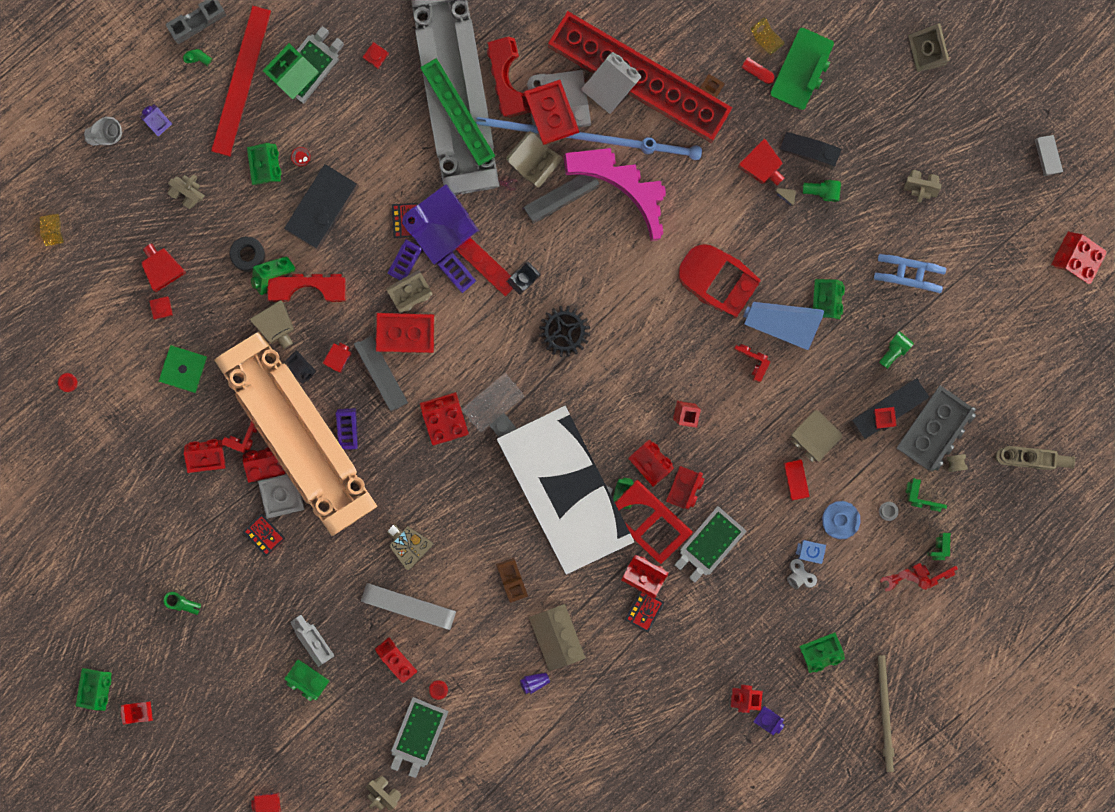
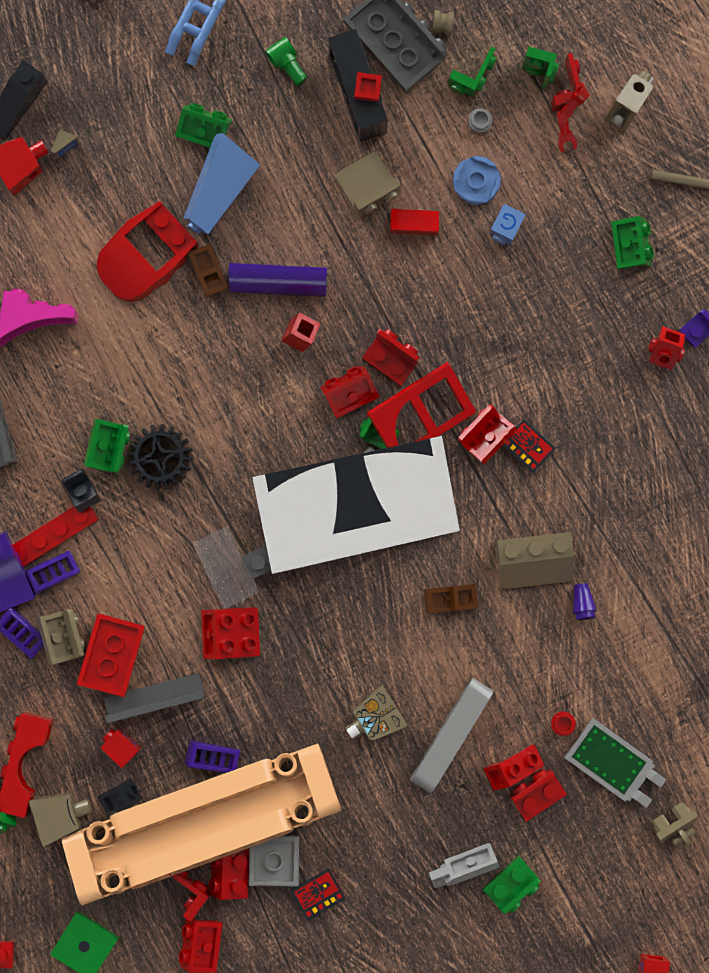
camera: 80 degrees left, 0 degrees up
(380, 683) = (537, 794): none -> red bracket
(562, 288) = (106, 446): none -> green bracket
(710, 543) = (466, 345): tile -> none
(717, 331) = (208, 270): none -> reddish brown slope
(723, 386) = (277, 279): none -> dark purple brick
(759, 371) = (270, 232): red bracket -> none
(800, 576) = (532, 246): light grey piece -> none
(828, 190) = (70, 93): green pin -> none
(933, 624) = (630, 100): none -> dark tan torso

